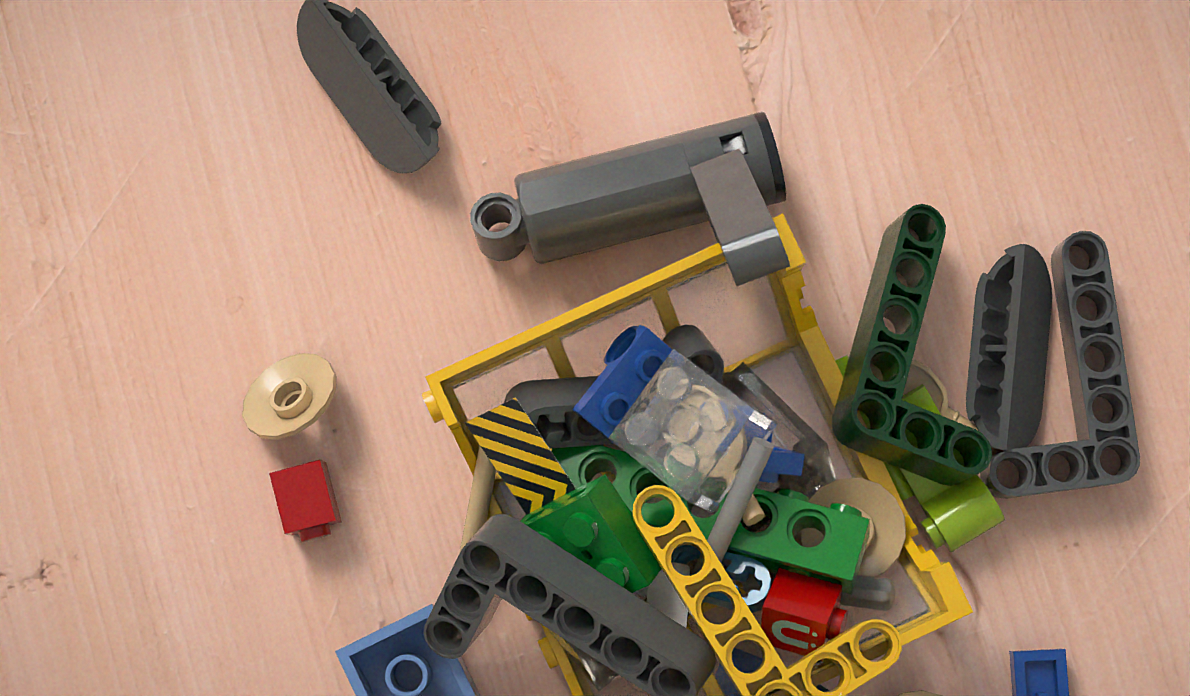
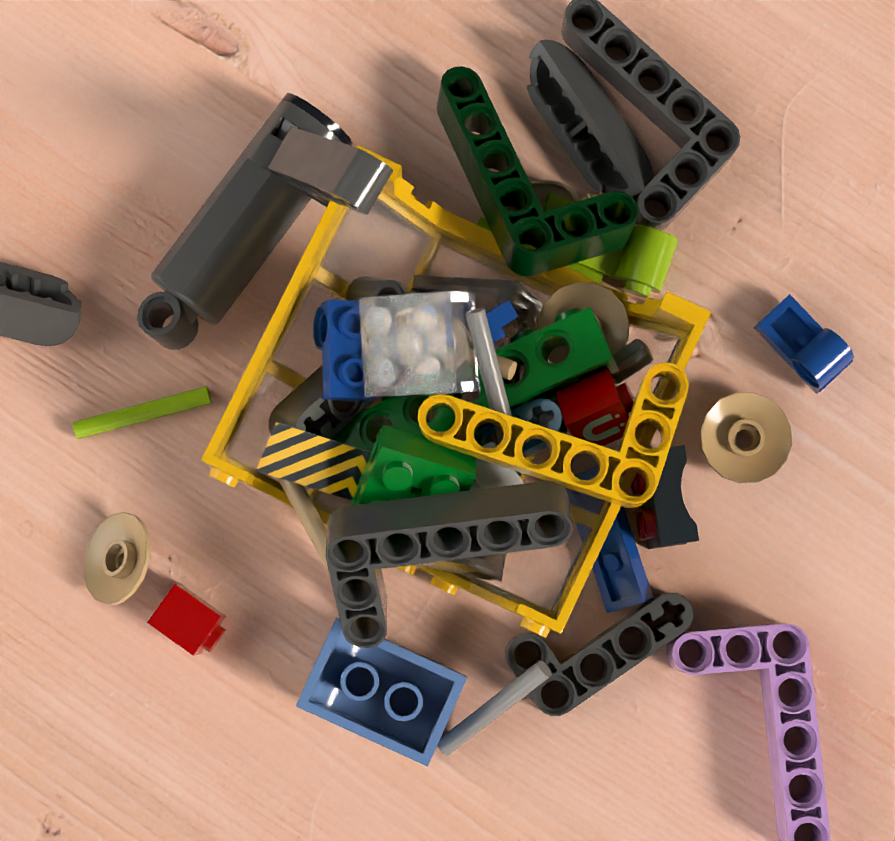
camera: 45 degrees left, 0 degrees up
(413, 286) = (141, 412): none -> lime piece

